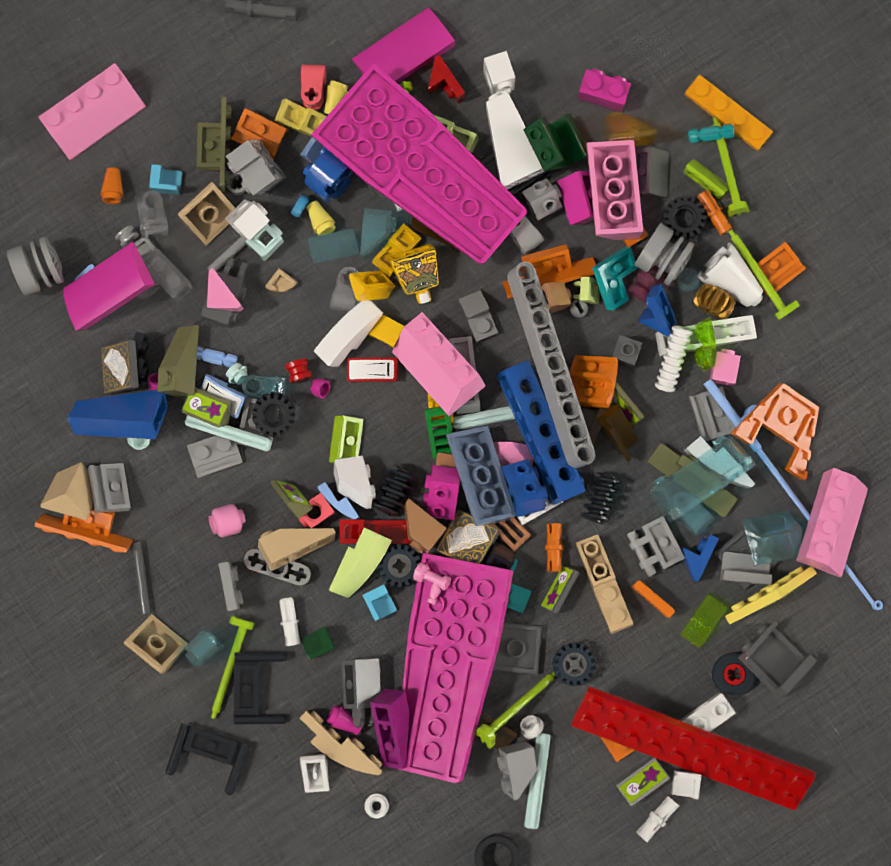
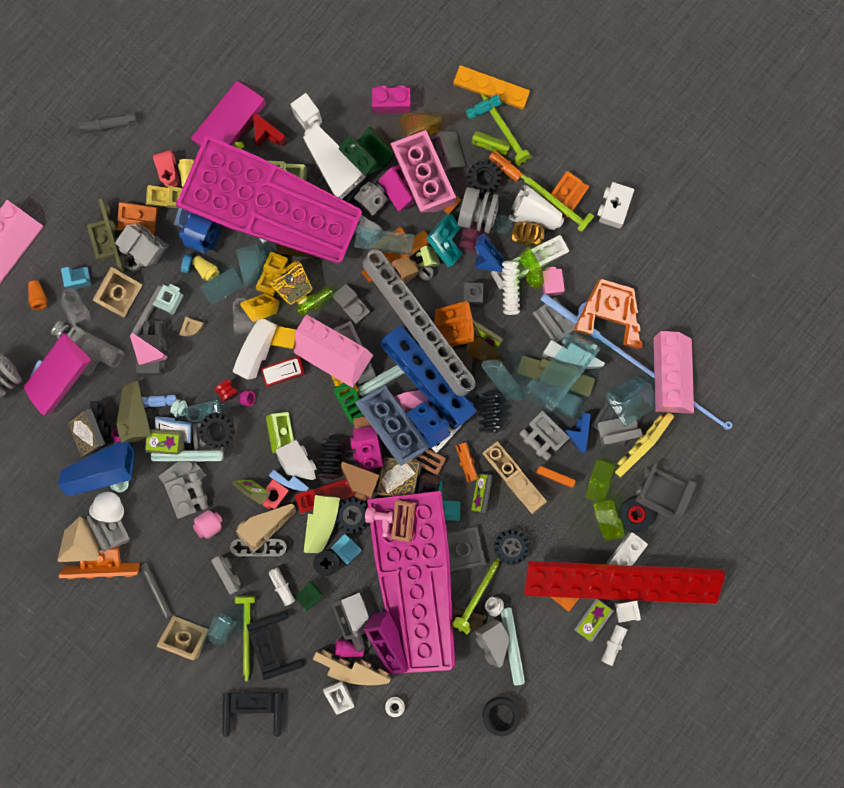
camera: 15 degrees left, 0 degrees up
(115, 462) = (107, 507): none -> white helmet
(205, 477) = (180, 497): none -> light grey plate
(248, 218) = (148, 286): white brick -> none
(348, 602) = (330, 556): none -> black piece
(436, 299) = (314, 301): none -> clear neon green pin
(465, 595) = (410, 522): none -> nougat tile
(542, 255) = (384, 241): none -> clear light blue tile
(628, 465) = (503, 380): none -> clear light blue tile
(698, 674) = (607, 519): none -> clear neon green slope
(841, 294) = (615, 216): none -> white brick

